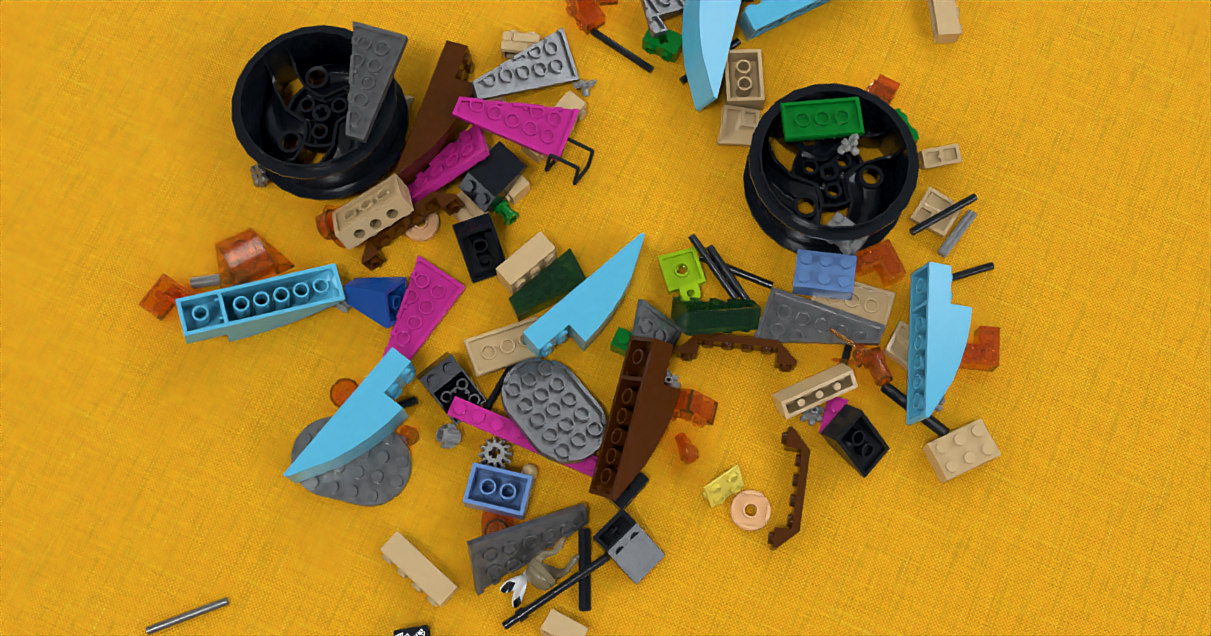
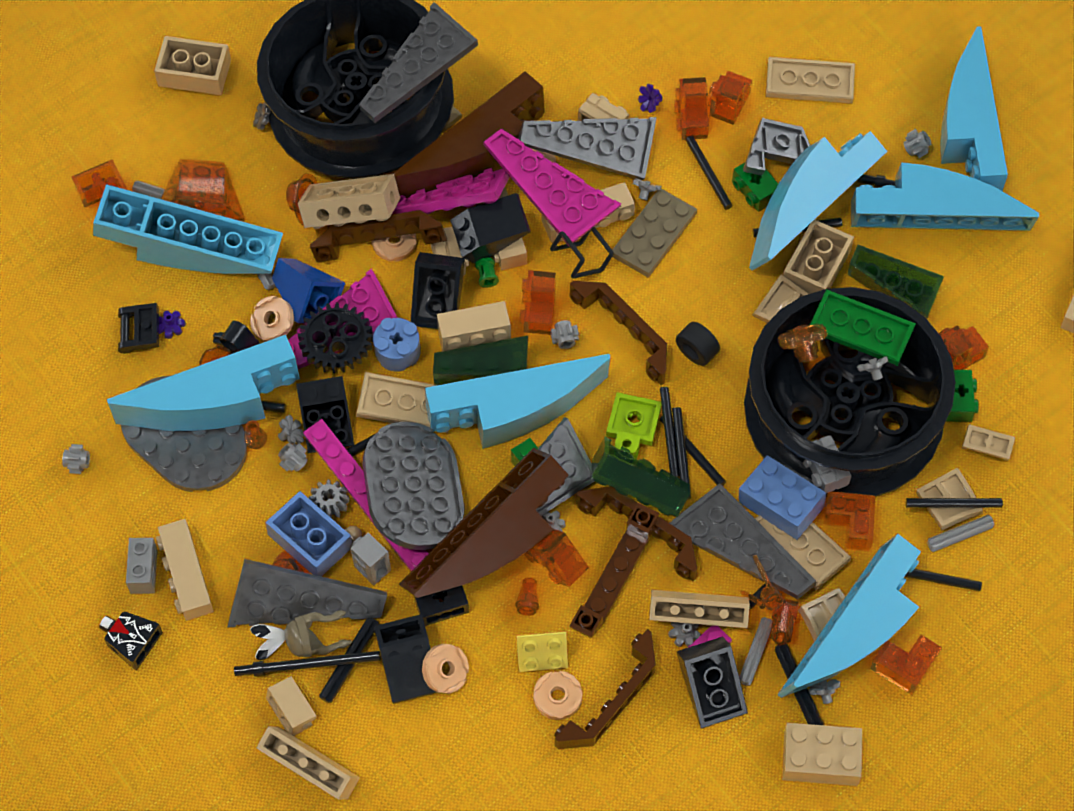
camera: 30 degrees right, 10 degrees down
(179, 162) = (192, 65): none -> tan brick
(271, 394) = (145, 327): none -> black plate
(281, 528) = (76, 459): none -> light grey gear
(288, 382) = (171, 323): none -> dark purple plant
(350, 367) = (235, 338): none -> black beam
(376, 332) = (282, 323): none -> light nougat tile
(384, 585) = (141, 565): none -> light grey brick
(408, 325) = (352, 346): none -> black gear
(434, 415) = (290, 430): none -> light grey plant
(471, 294) = (396, 344): none -> medium blue brick
(546, 14) = (650, 98): none -> dark purple plant
(556, 484) = (370, 558): none -> light grey brick
(559, 212) = (539, 297): none -> clear orange brick
(588, 193) = (588, 292): none -> reddish brown slope
(593, 231) = (564, 334): none -> light grey gear
(610, 117) = (654, 232): none -> dark tan plate
(651, 538) = (433, 672): none -> light nougat tile
(695, 188) = (697, 343): none -> black tyre
(738, 394) = (617, 572): none -> reddish brown slope
(790, 151) = (803, 341): none -> clear orange plant
(807, 66) = (896, 278): none -> clear green wedge
(869, 398) = (756, 651): none -> light grey axle

